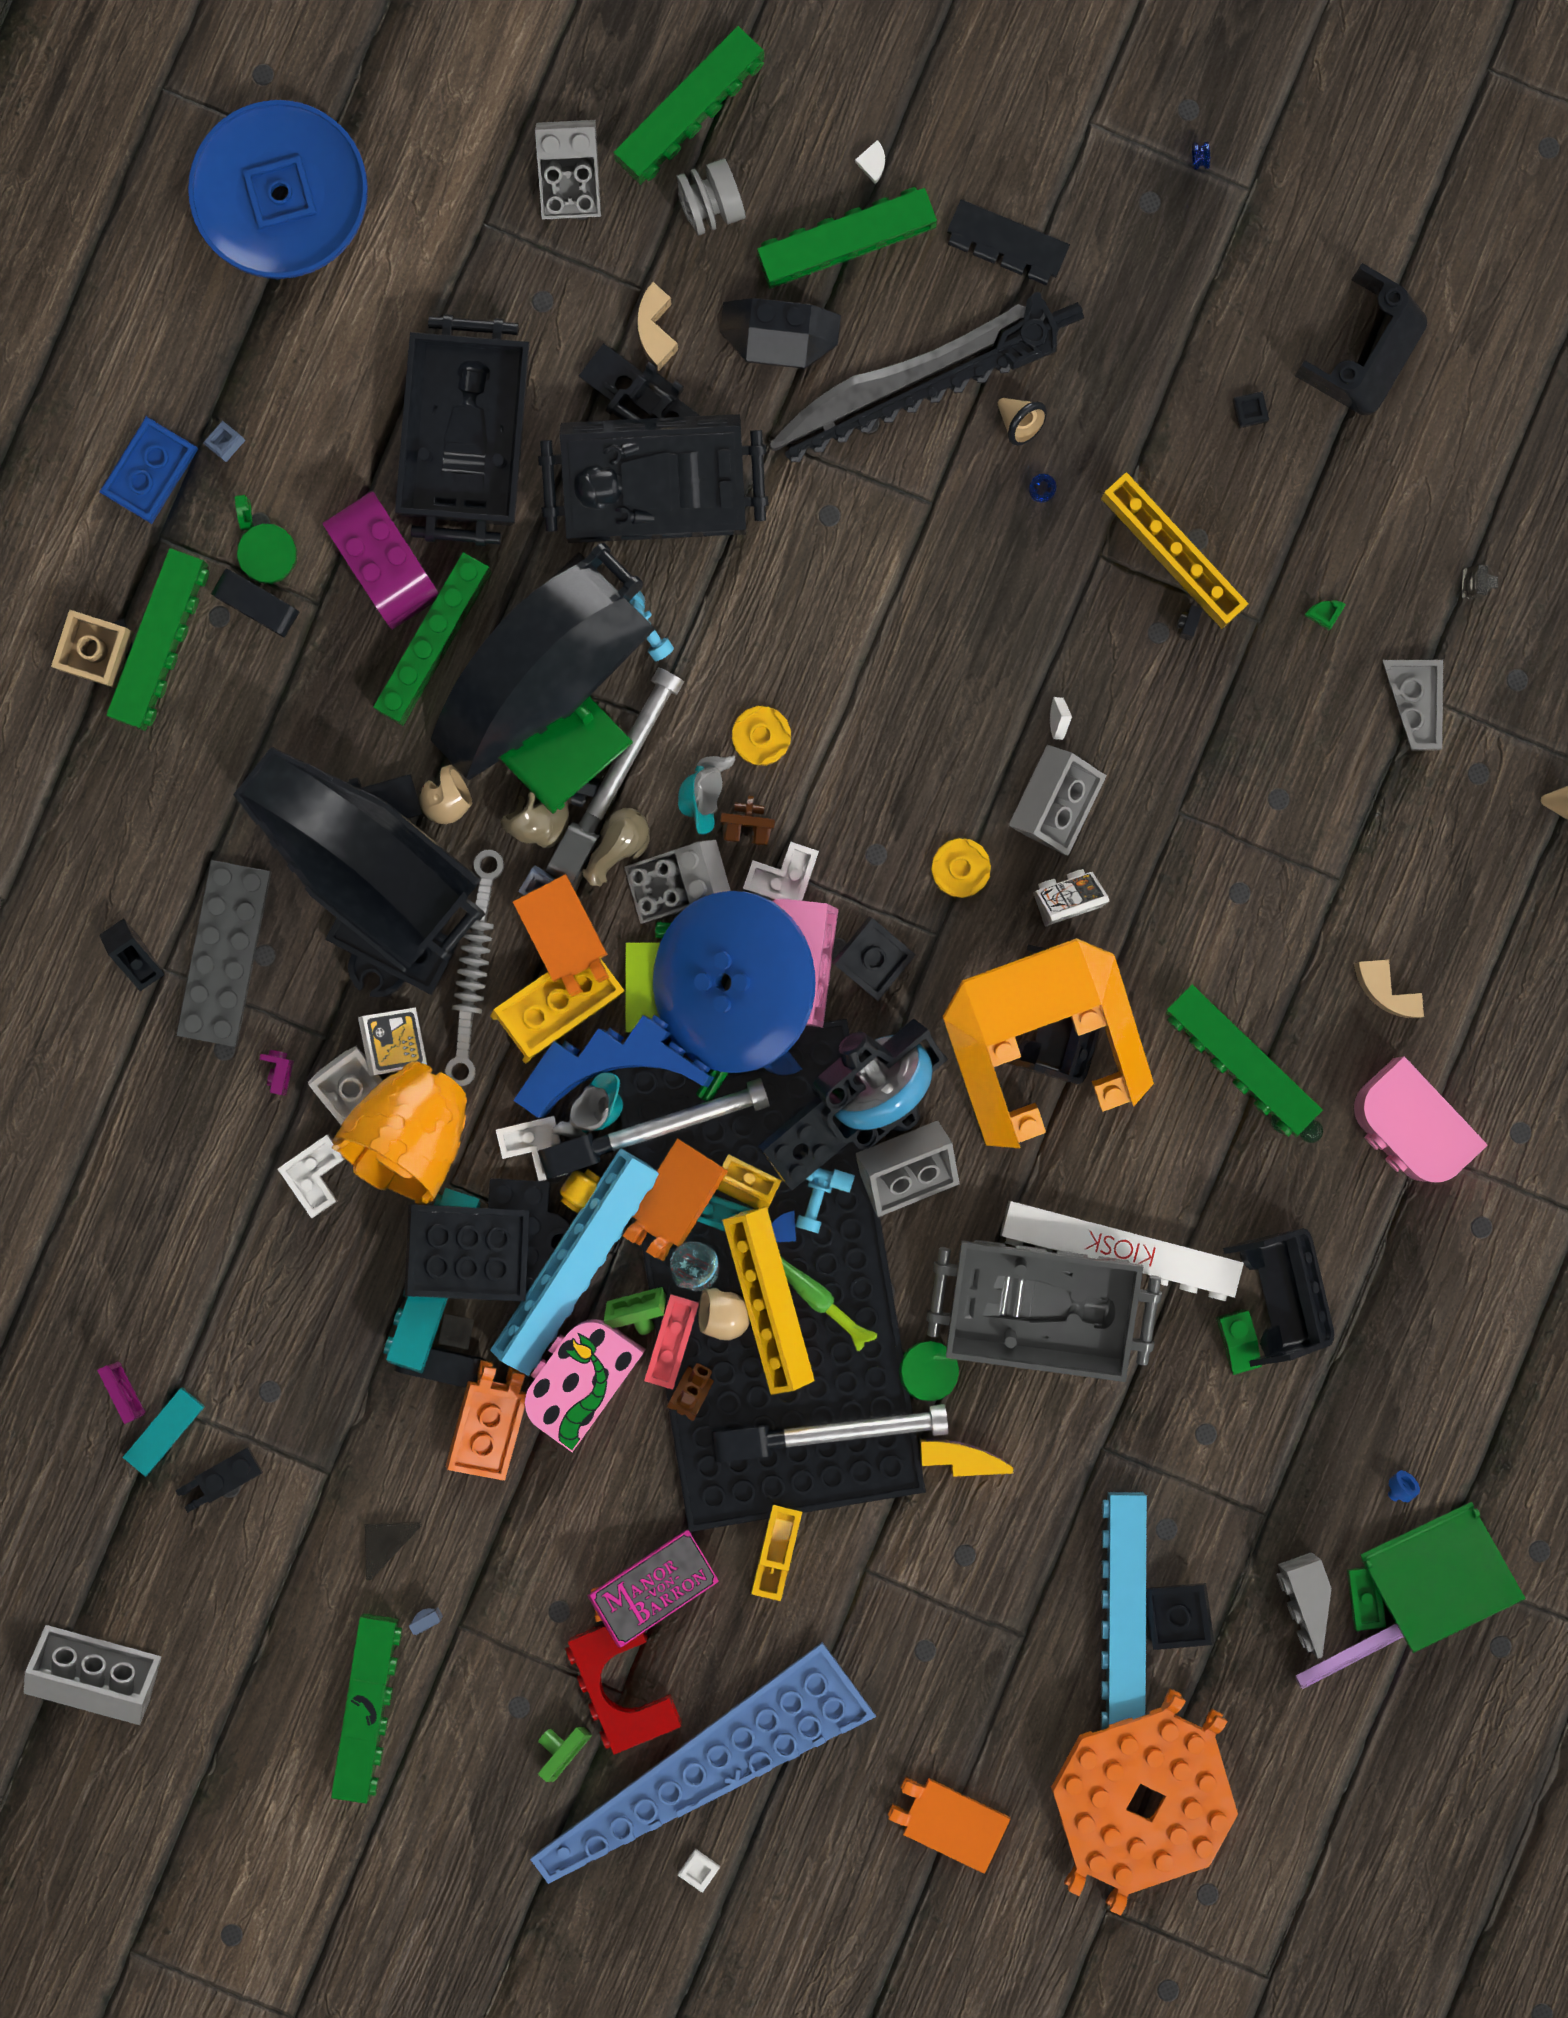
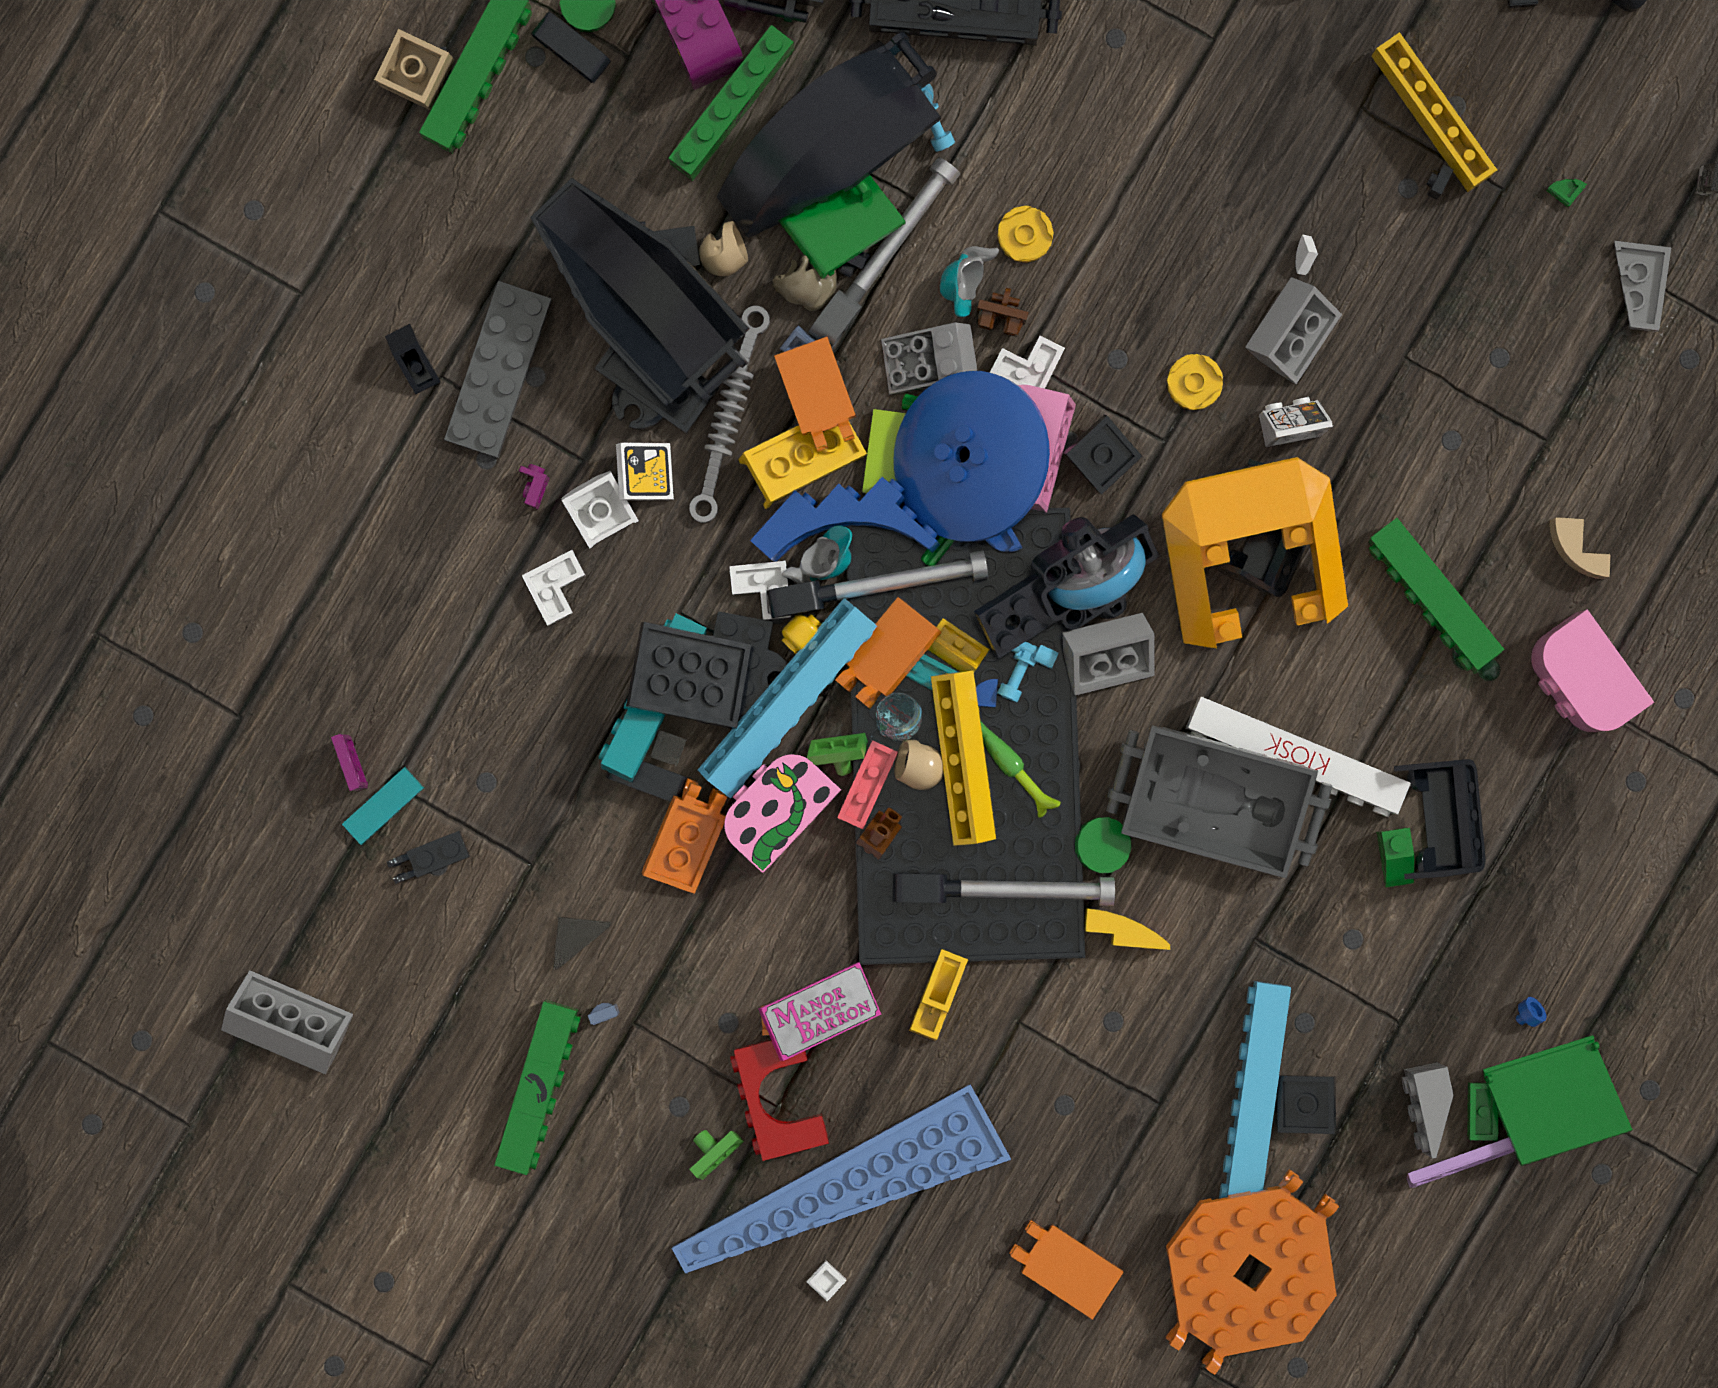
camera: 10 degrees right, 0 degrees up
(405, 1132) = (646, 556): light orange piece -> none
(622, 836) = (884, 309): dark tan piece -> none
(1047, 495) = (1321, 46): clear blue bush -> none

